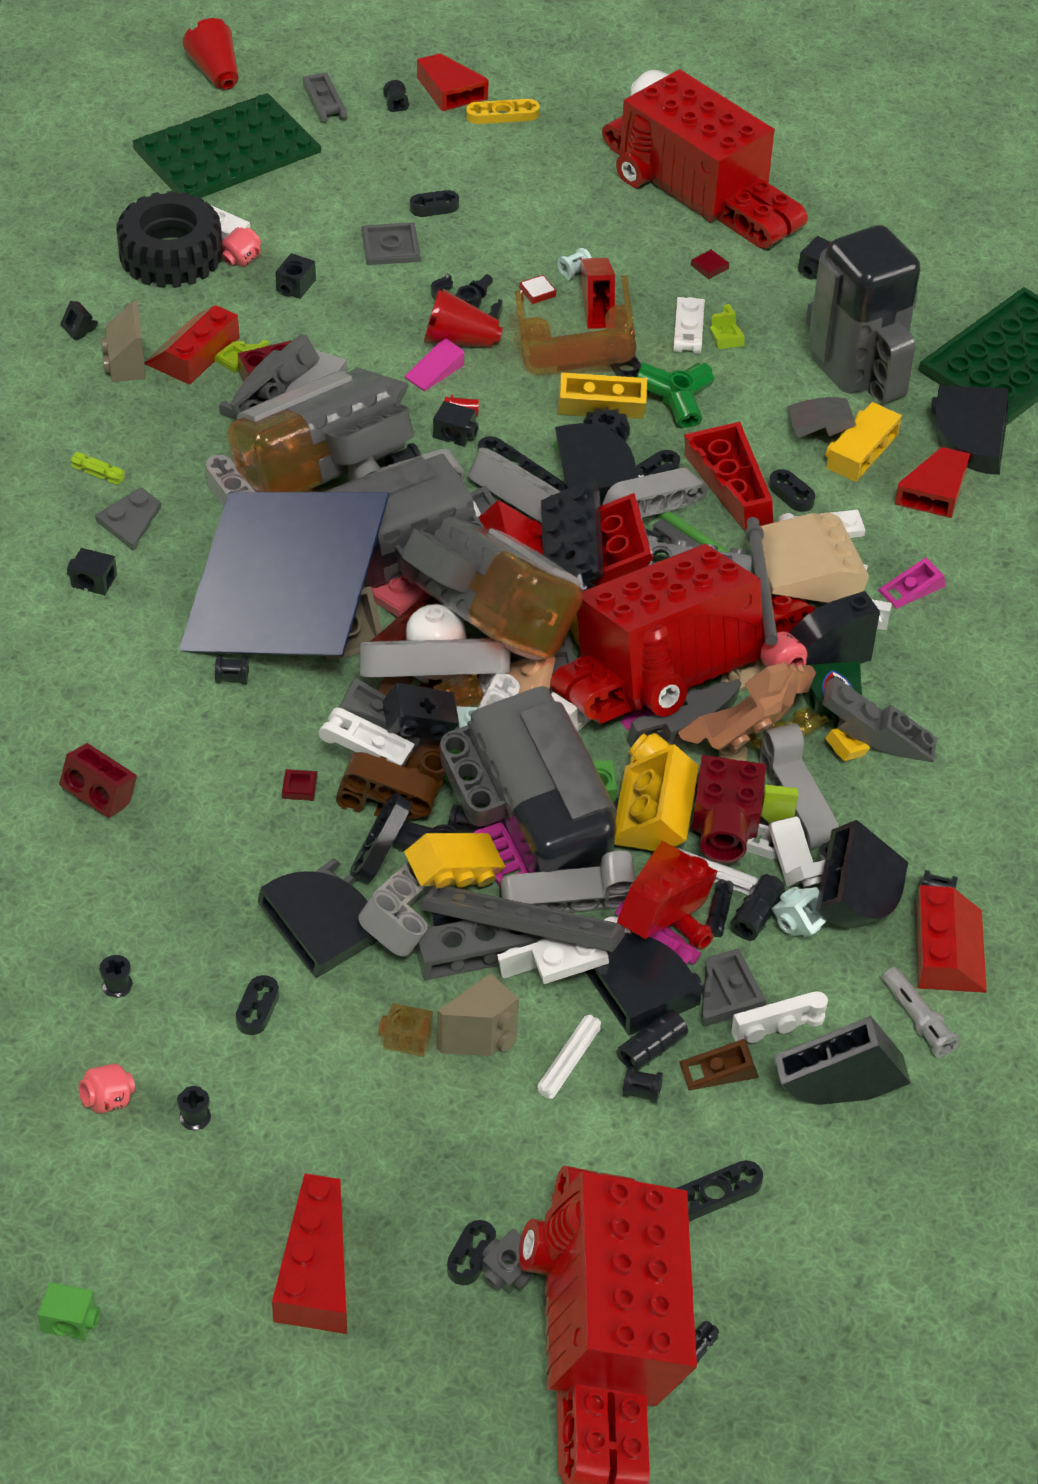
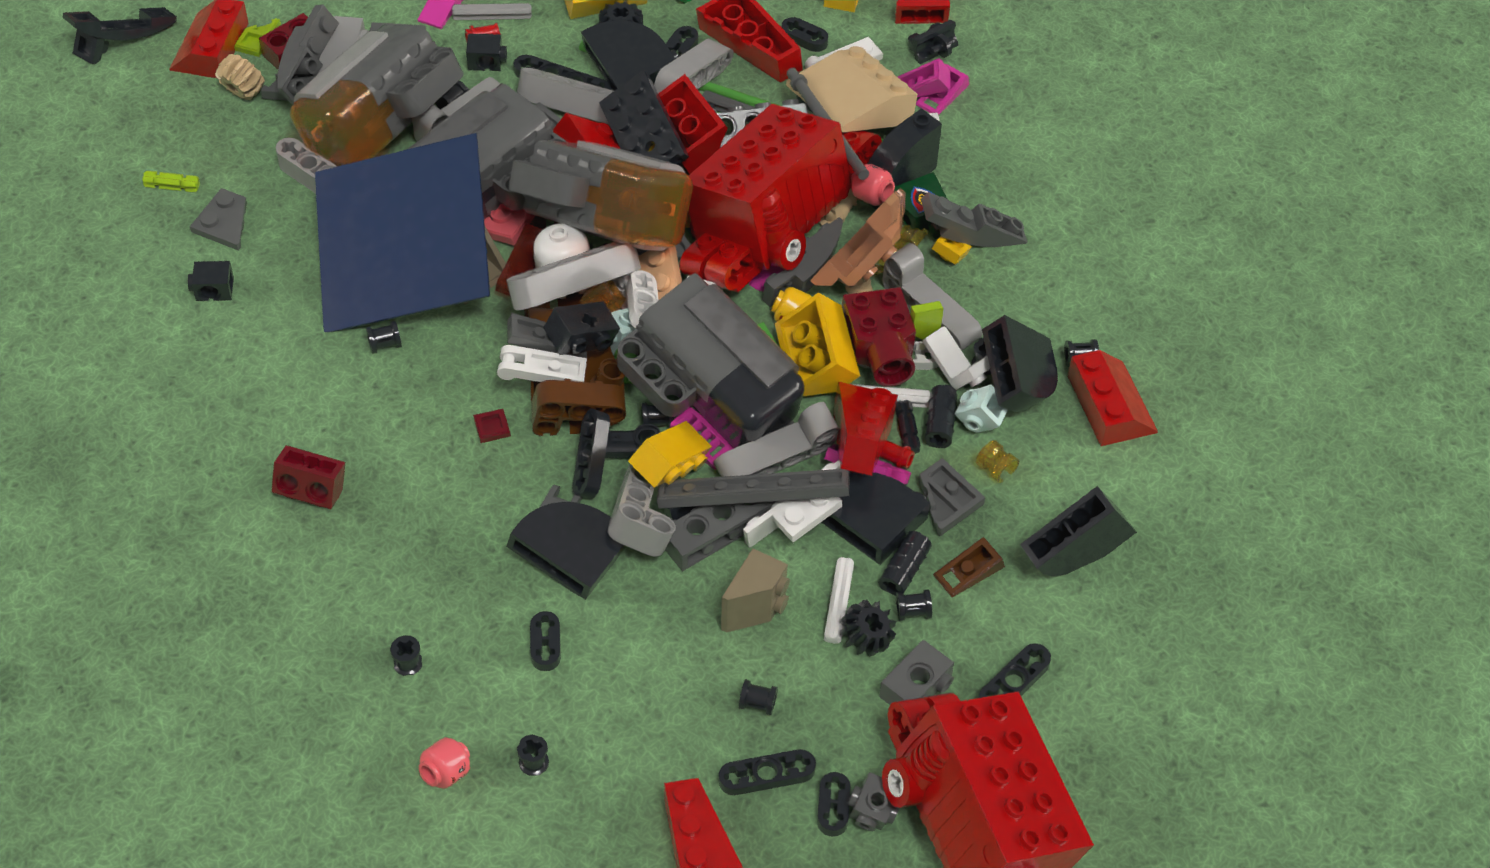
camera: 20 degrees left, 5 degrees up
(78, 296) = (149, 22): none -> black slope
(124, 346) = (148, 57): dark tan slope -> none
(203, 385) = (239, 77): none -> tan gear
(410, 1188) = (741, 768): none -> black beam
(415, 1020) = (690, 610): clear orange brick -> none
(441, 1124) = (758, 697): none -> black bush
(481, 387) = (492, 11): none -> light grey axle
(593, 1101) = (868, 627): none -> black gear
(620, 1143) = (921, 664): none -> dark grey brick
(780, 1017) = (1003, 508): white plate -> none
(795, 966) = (995, 459): none -> clear yellow wheel
(896, 567) = (930, 78): none -> dark pink slope
(925, 532) = (936, 41): none -> black hips
(928, 1022) = (1123, 472): light grey pin -> none

